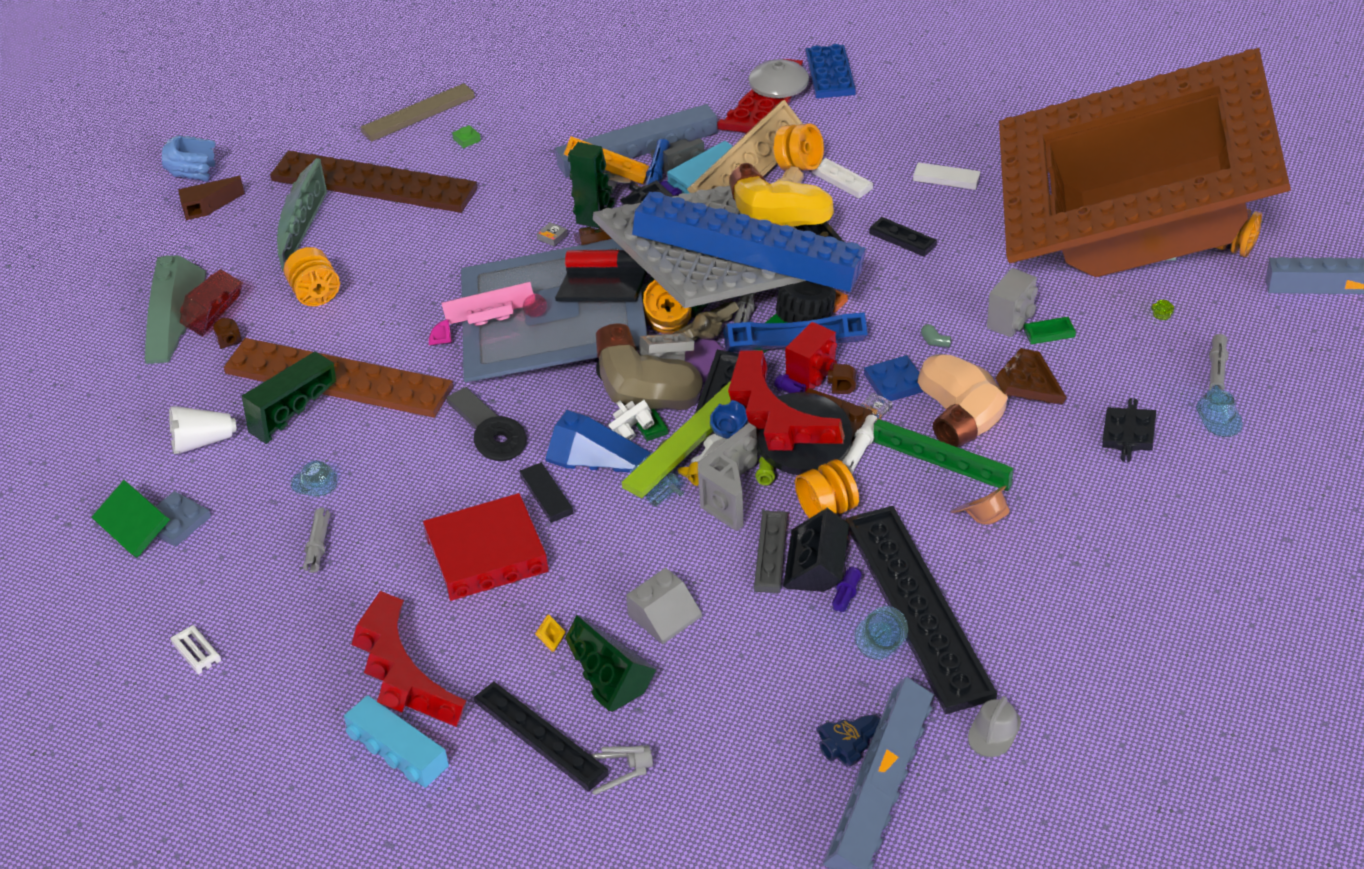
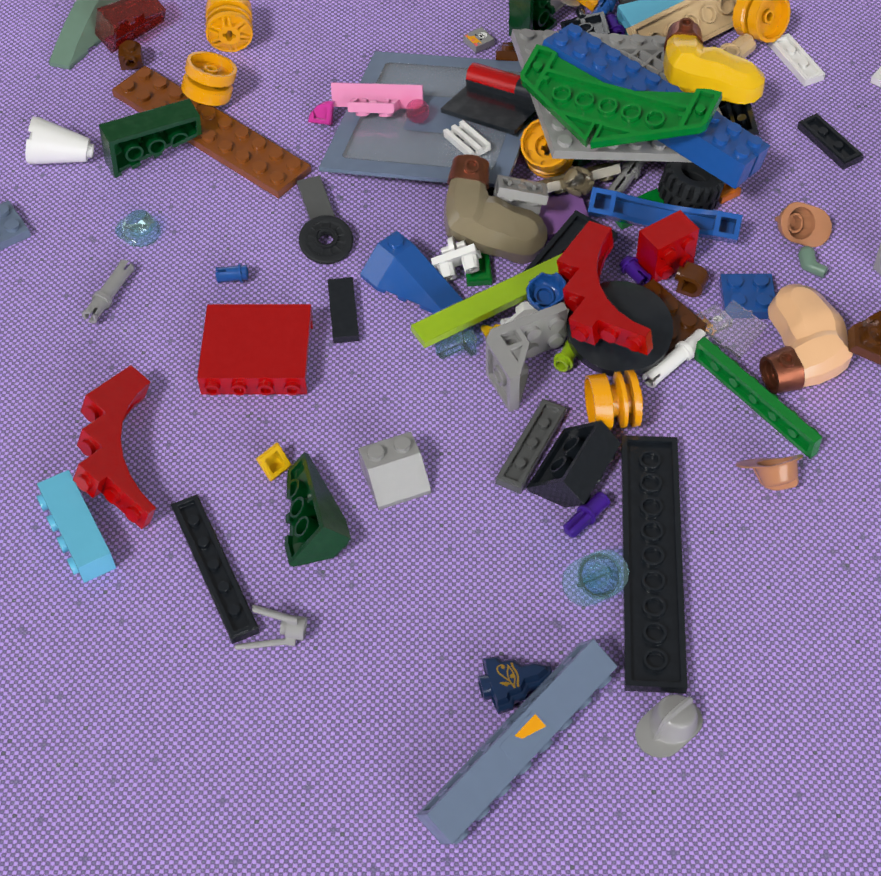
camera: 20 degrees right, 10 degrees up
(319, 330) = (208, 78): none -> light orange wheel
(427, 491) = (232, 273): none -> blue pin
(595, 314) = (470, 137): none -> white tile
(727, 253) = (613, 111): none -> green wing
(899, 406) = (736, 329): none -> clear piece
(915, 307) = (804, 224): none -> nougat piece

